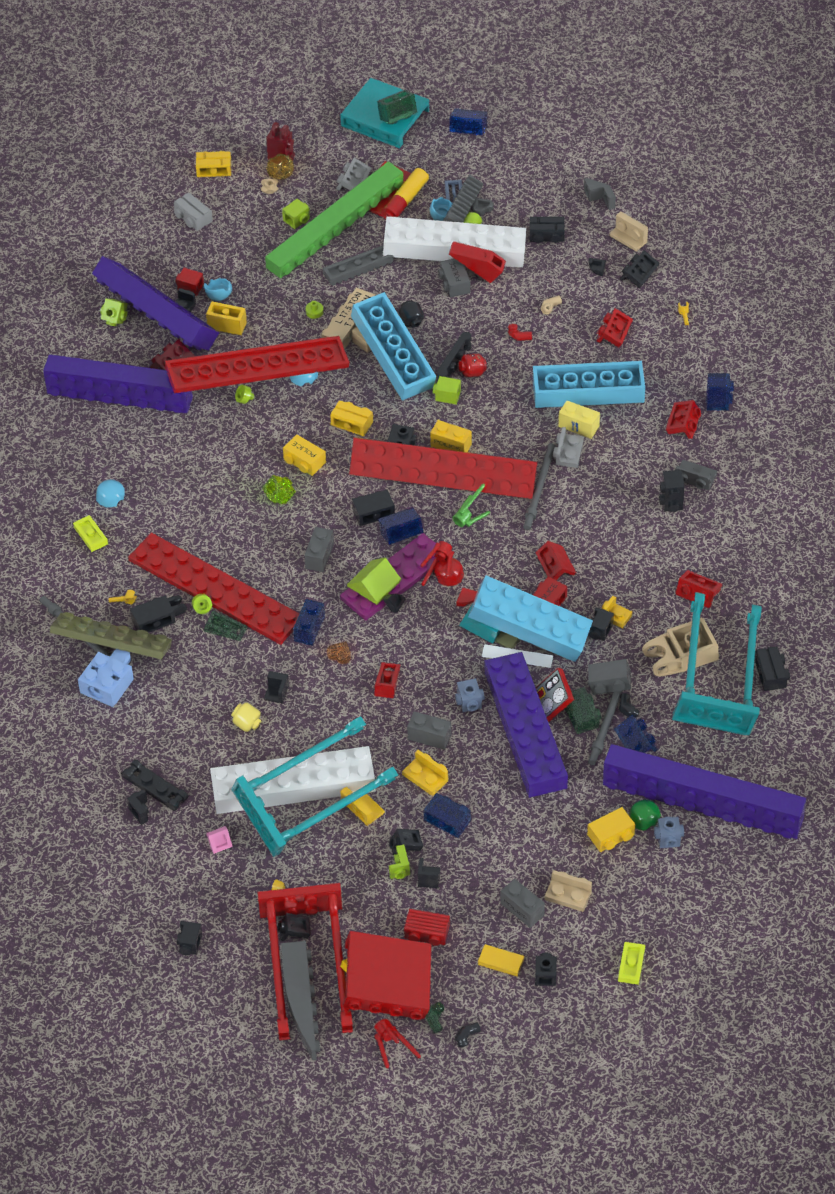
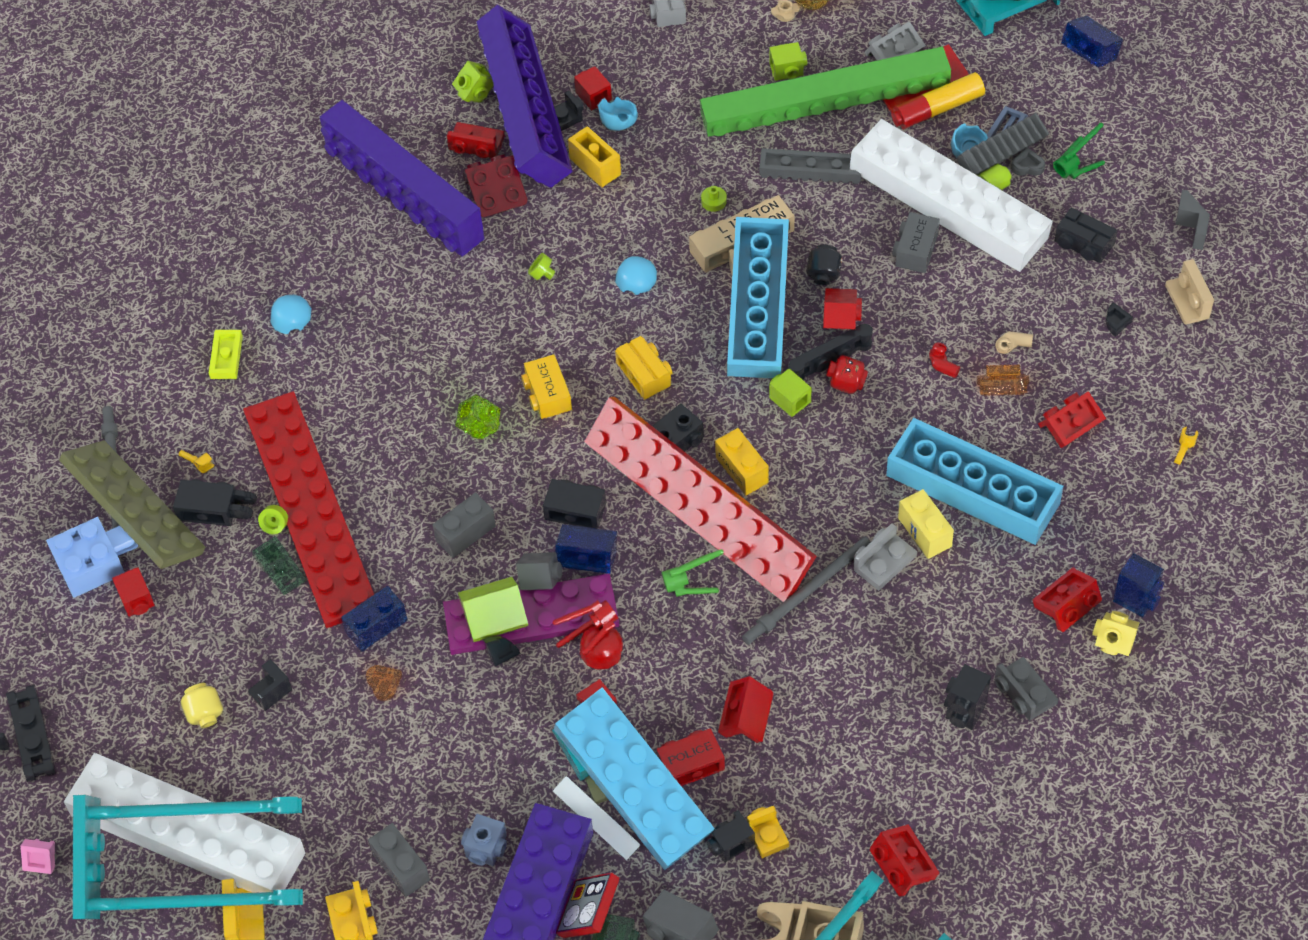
camera: 35 degrees right, 5 degrees up
(140, 345) = (475, 140): none -> red bracket
(151, 682) = (133, 592): none -> red brick
(256, 364) = (571, 236): red plate -> none
(384, 548) = (538, 571): none -> dark grey brick
(387, 680) = (409, 754): red slope -> none
(443, 331) = (841, 308): none -> red brick
(481, 261) = (956, 233): red slope -> none
(505, 195) = (1068, 163): none -> green plant
(560, 327) = (1003, 380): none -> clear orange piece
(640, 269) = (1168, 353): black bracket -> none
(729, 422) = (1125, 633): none -> light yellow brick

